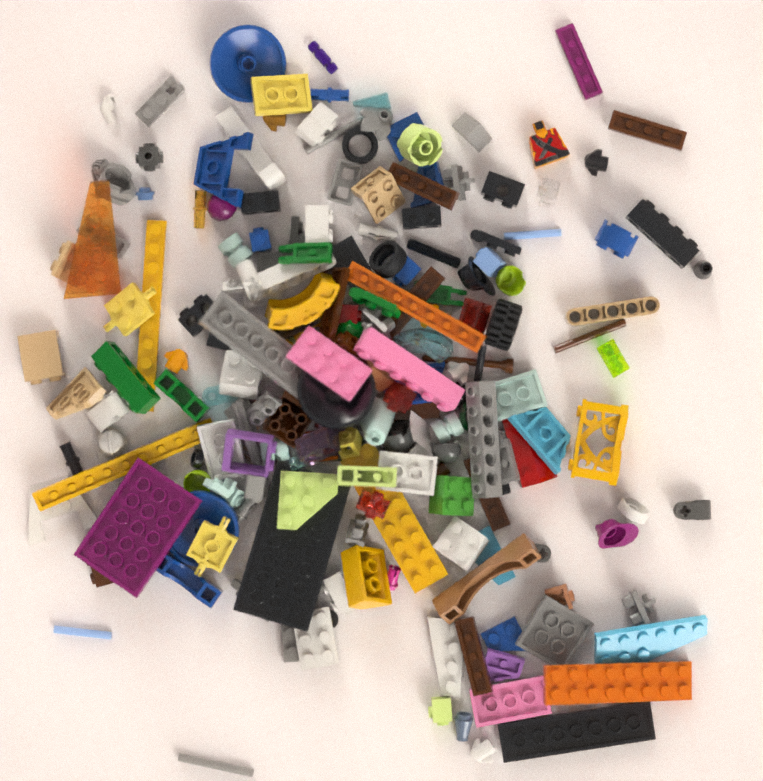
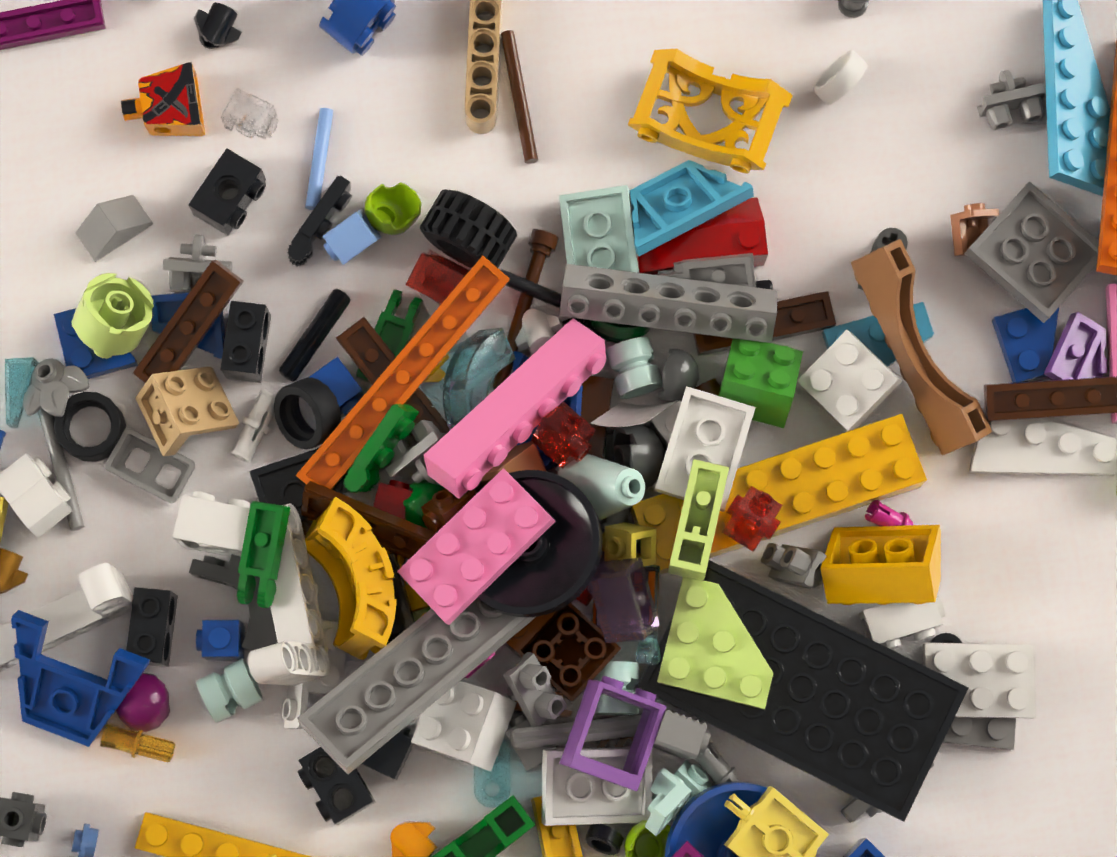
camera: 85 degrees left, 10 degrees down
(474, 278) = (374, 273): black piece -> none
(613, 358) = (566, 60): clear neon green hips -> none
(614, 534) = (875, 116): magenta piece -> none

